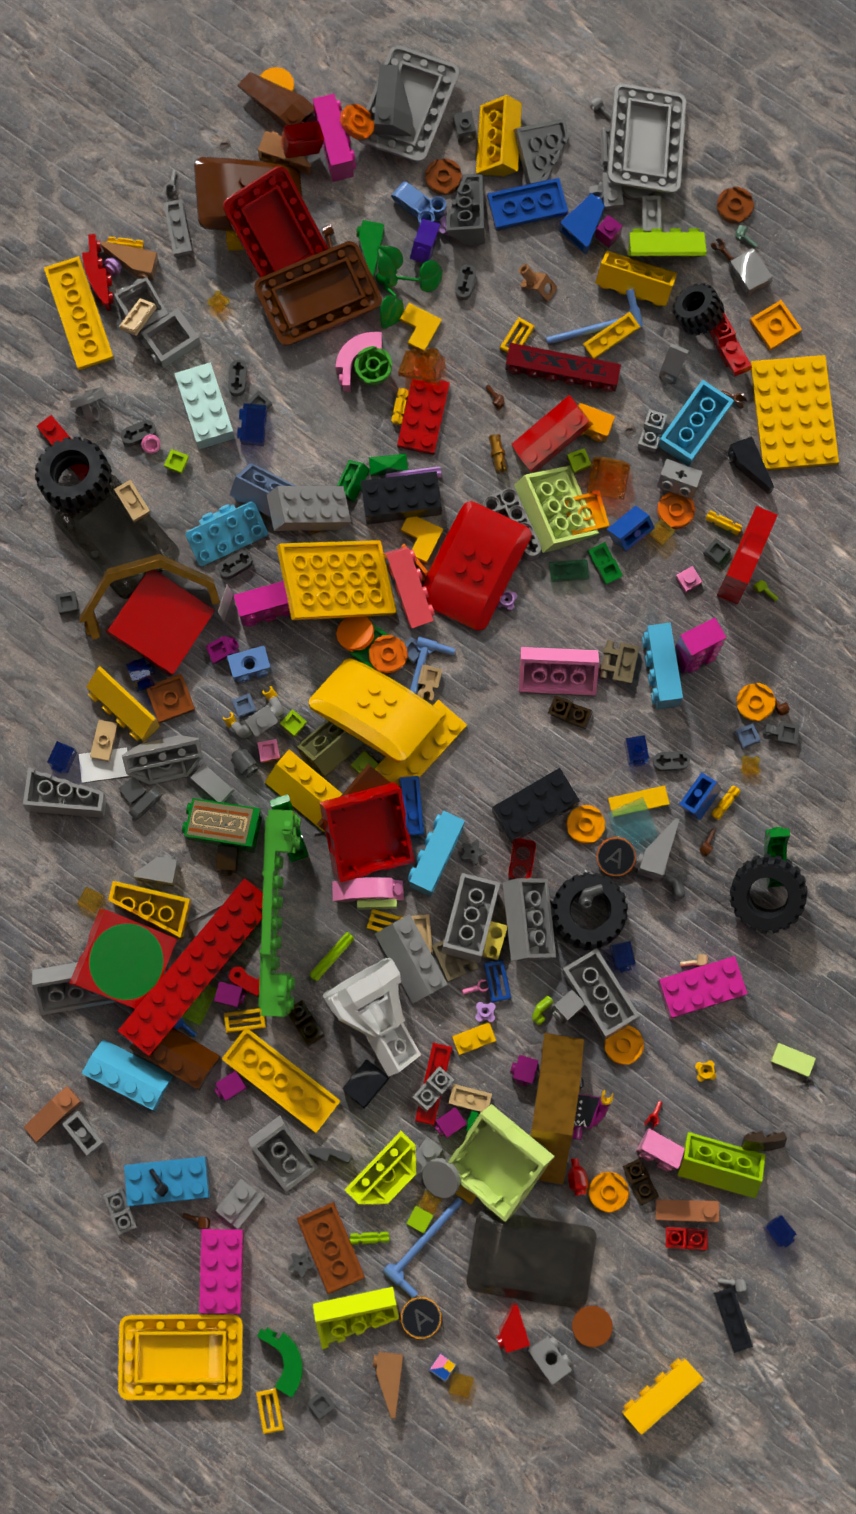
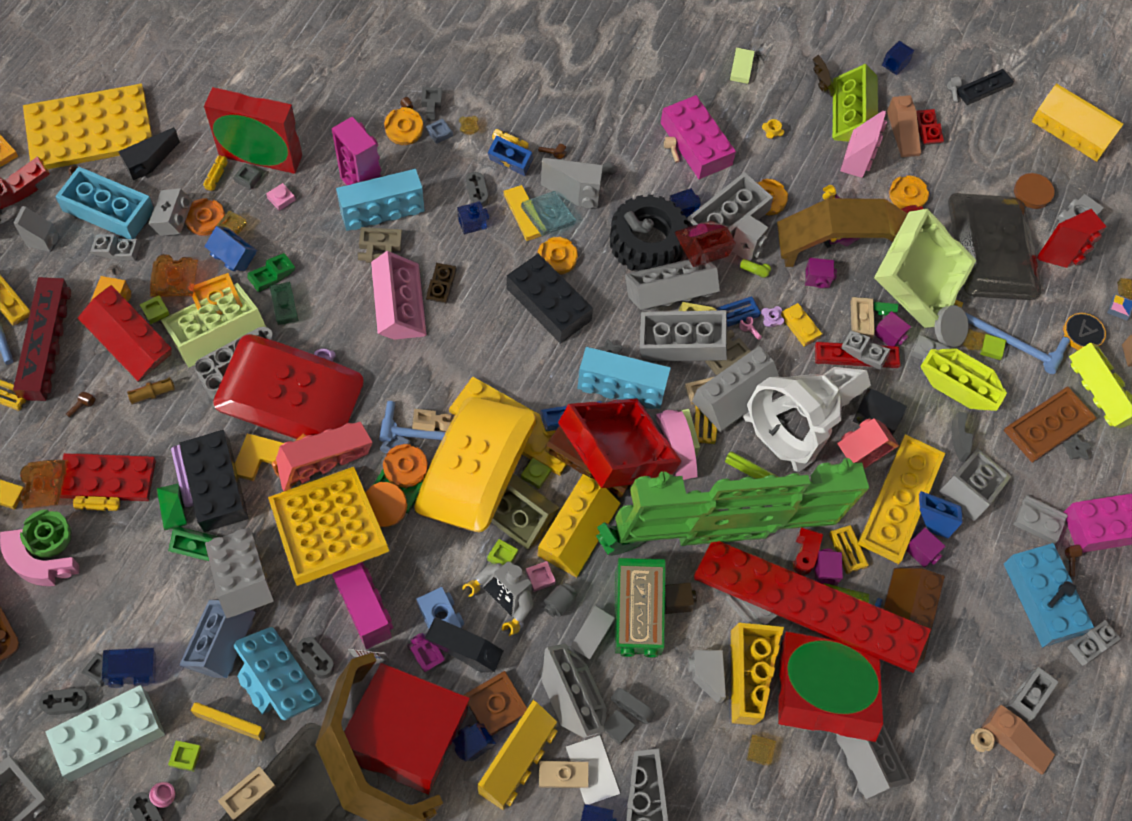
camera: 105 degrees left, 15 degrees down
(56, 1079) = (988, 740): none -> tan plate
(128, 1074) = (950, 664): medium azure slope -> none
(196, 494) = (228, 721): none -> yellow tile
(215, 676) = (464, 646): none -> black slope
(244, 706) = (490, 615): sand blue tile -> none
(255, 1103) = (940, 515): none -> blue slope
(331, 1056) = (868, 442): none -> coral brick
(370, 1237) = (1027, 389): lime axle -> none
(531, 845) = (617, 294): red piece -> none
(560, 953) = (706, 242): none -> clear red slope
(616, 856) = (585, 222): black tile -> none
(640, 1181) = (892, 168): dark brown slope -> none
(654, 1116) = (832, 163): red hand -> none
(768, 918) = (611, 71): black tyre -> none
(776, 844) = (557, 92): green arch -> none

